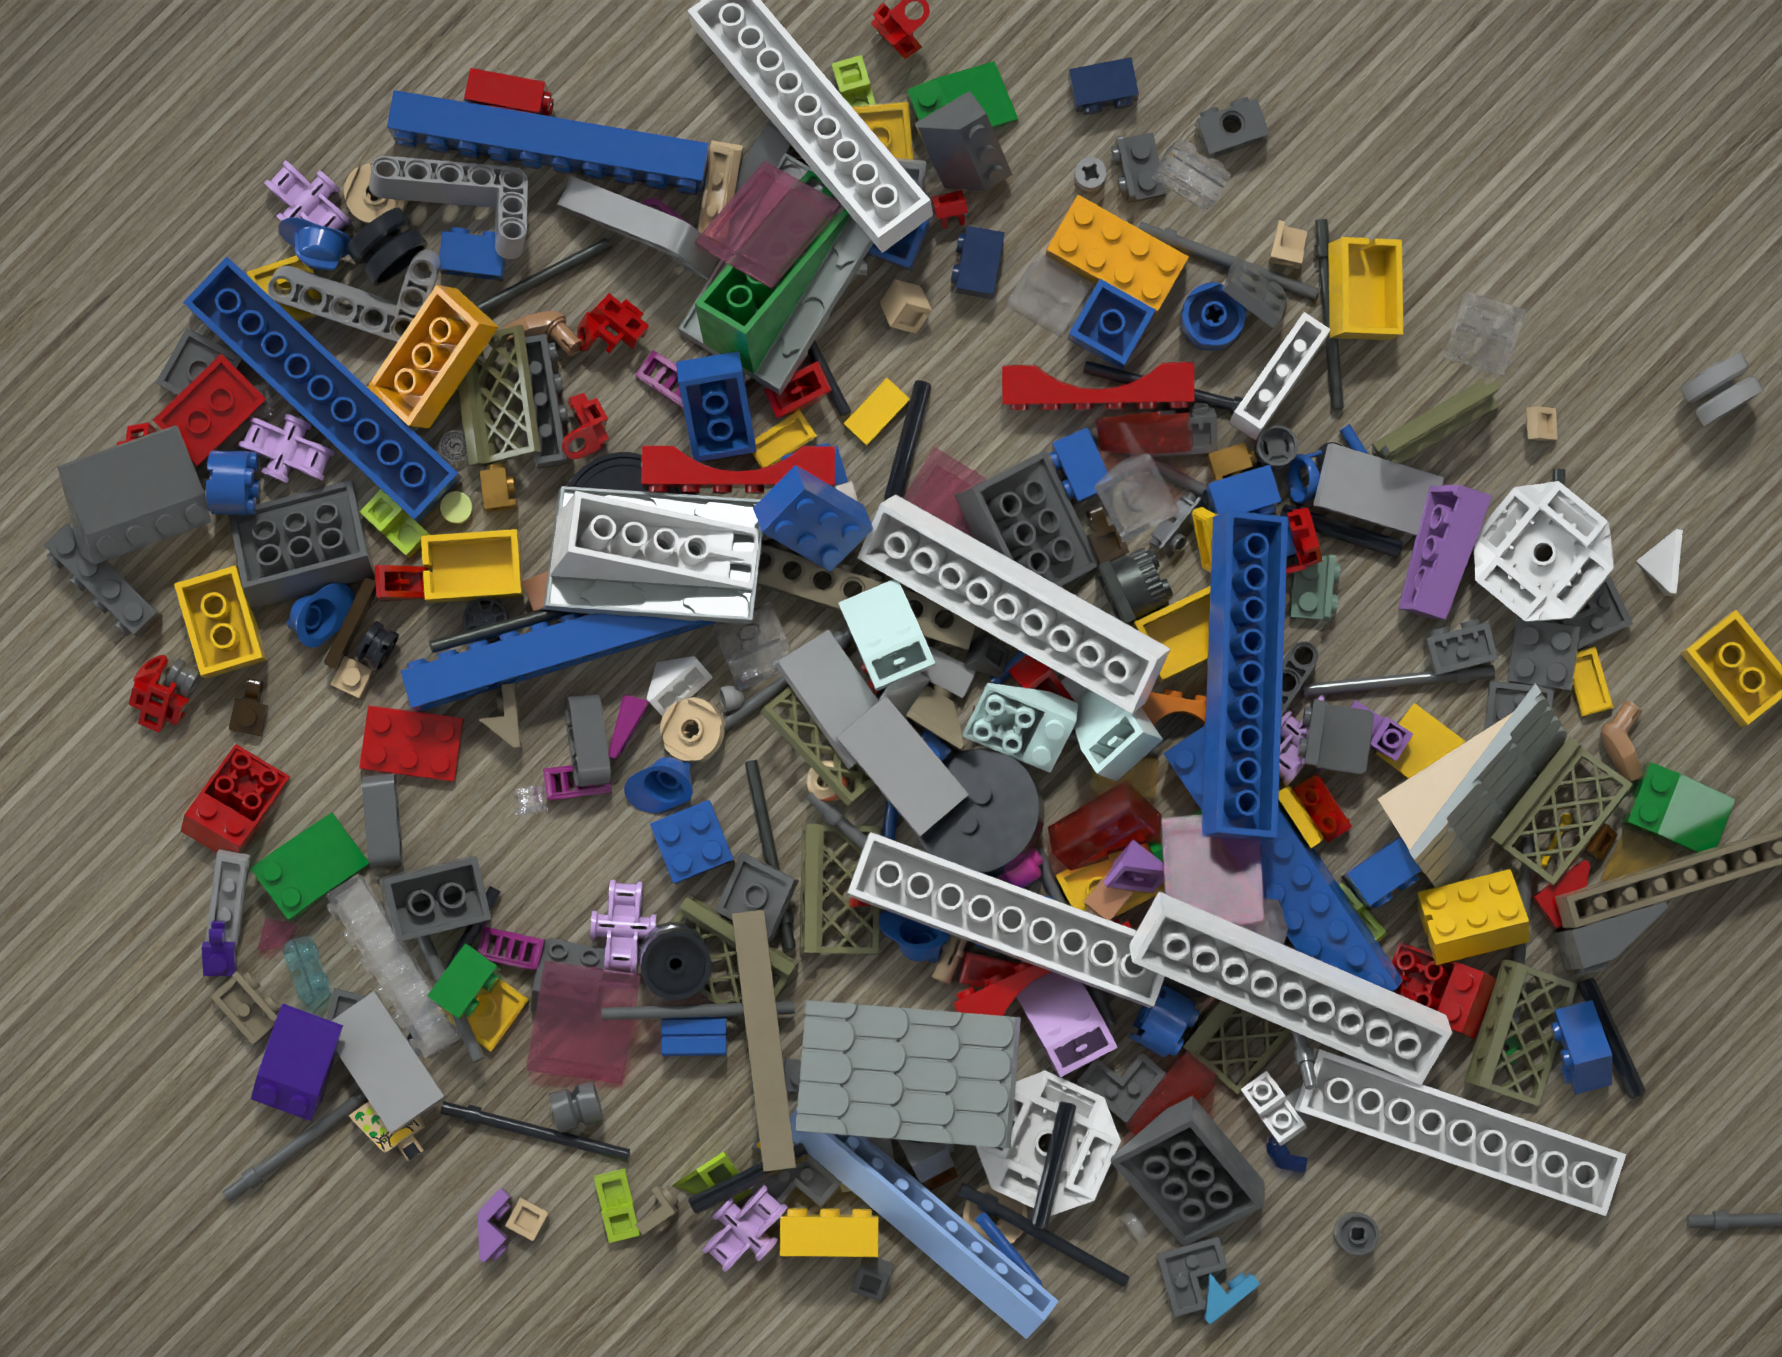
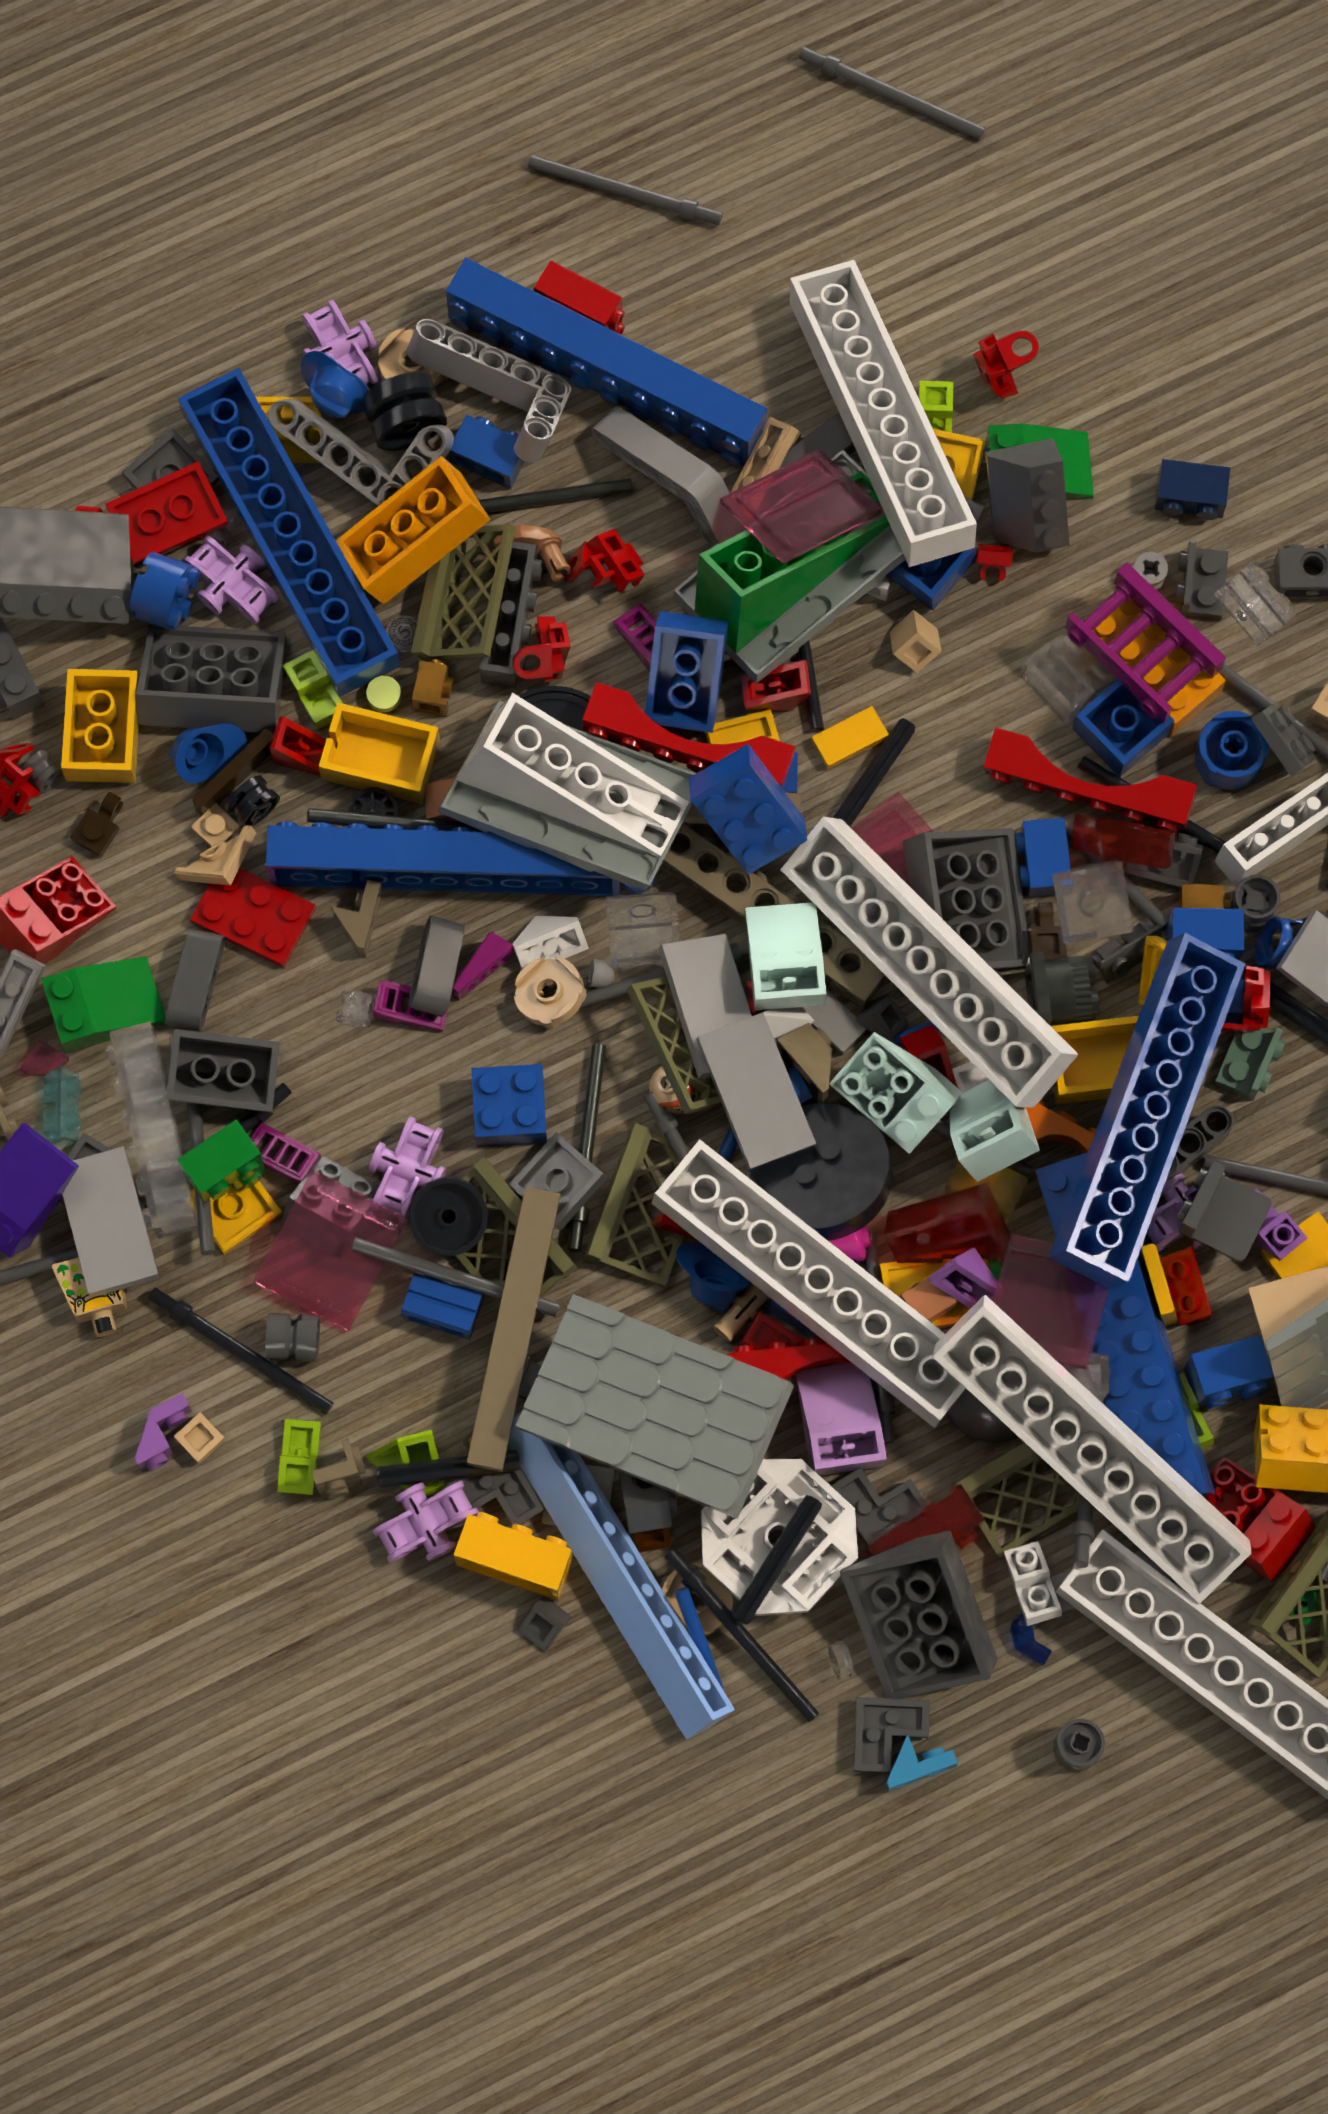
camera: 15 degrees right, 10 degrees down
(367, 709) = (220, 861): none -> tan tile
(660, 785) = (494, 1037): blue piece -> none
(979, 262) = (1005, 622): dark blue brick -> none
(1135, 233) = (1154, 610): none -> magenta fence
(1164, 1024) = (945, 1450): blue brick -> none

